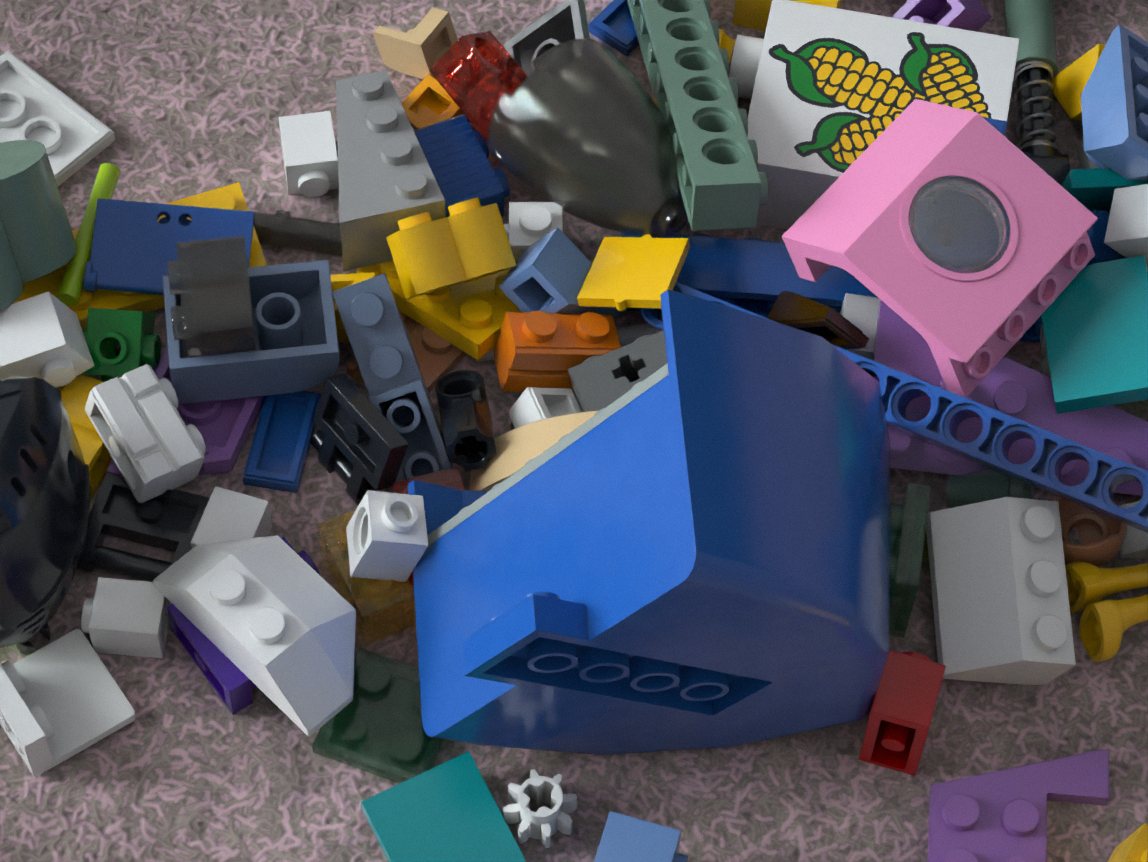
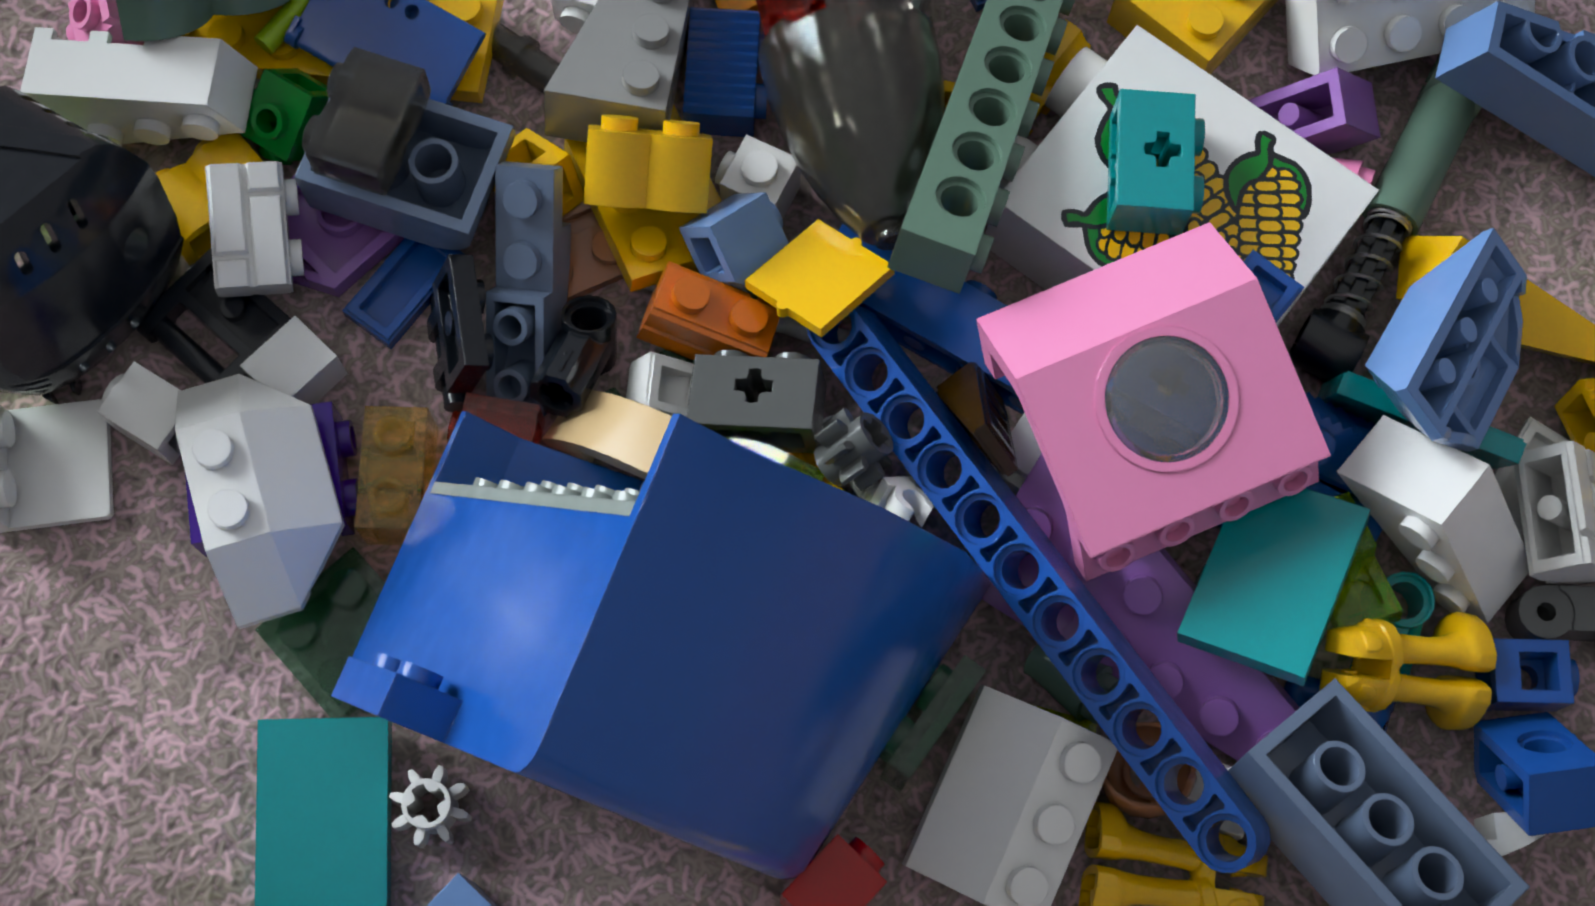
camera: 25 degrees right, 15 degrees up
(386, 536) = (405, 461): white brick -> none
(845, 80) = (1140, 131): none -> teal brick

